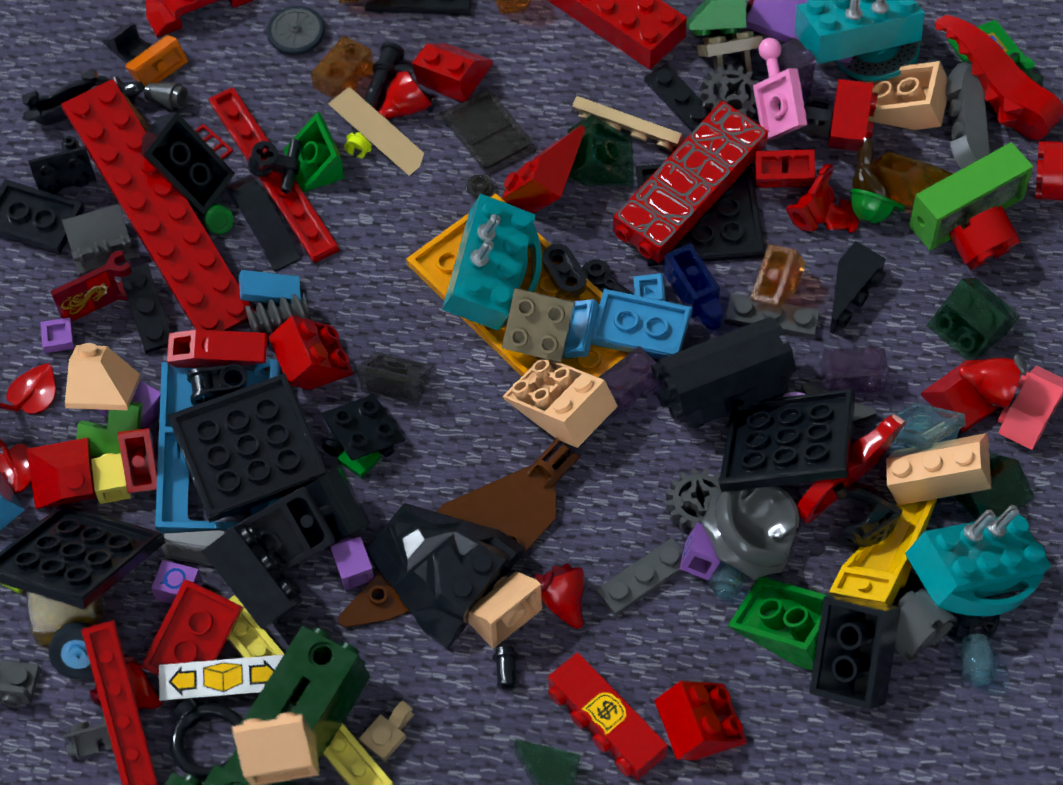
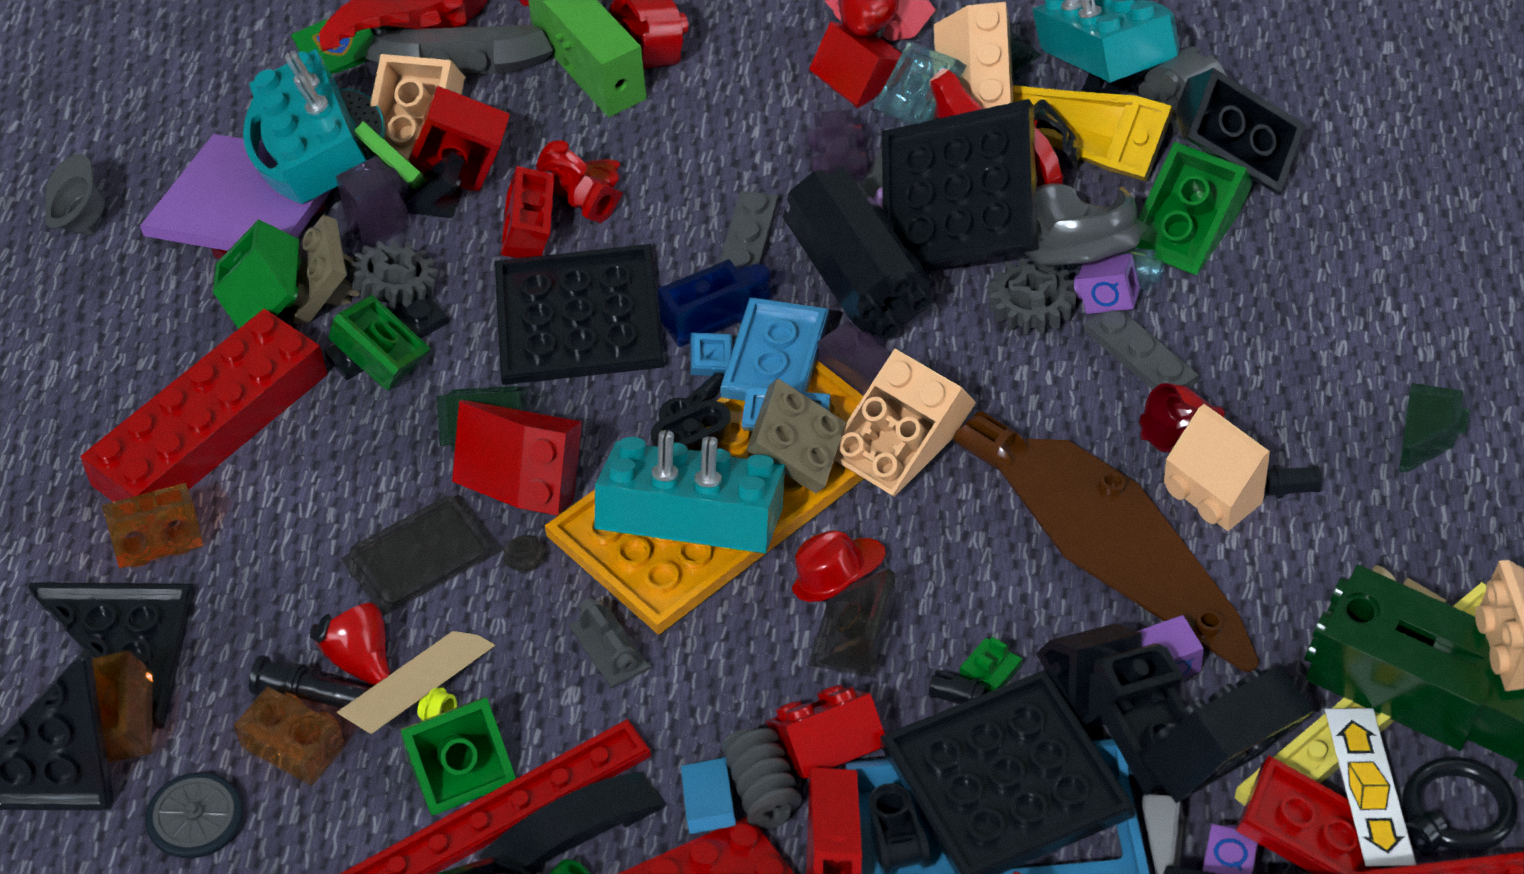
camera: 90 degrees left, 10 degrees down
(287, 165) = (475, 799): black piece -> none
(363, 428) = (953, 648): black hinge -> none
(400, 236) = (607, 643): none -> dark grey hinge
(440, 566) = (1166, 541): black wedge -> none
(450, 70) = (306, 587): red slope -> none
(451, 365) = (833, 562): none -> red piece
(606, 716) = (1345, 374): red brick -> none
(639, 128) = (423, 396): tan plate -> none
(658, 85) = (377, 341): none -> green slope
(689, 182) = (548, 302): red brick -> none
(699, 719) = (1335, 287): red slope -> none
(778, 88) = (411, 190): bright pink plate -> none
(778, 276) = (700, 219): clear orange slope -> none
(833, 65) = (388, 155): none -> bright green tile
(855, 275) = (700, 157): black slope -> none
(869, 194) = (576, 124): piece -> none
(906, 176) = (556, 98): clear orange slope -> none
(972, 319) = (757, 53): clear green slope -> none
(977, 660) = (1223, 50): clear light blue brick -> none

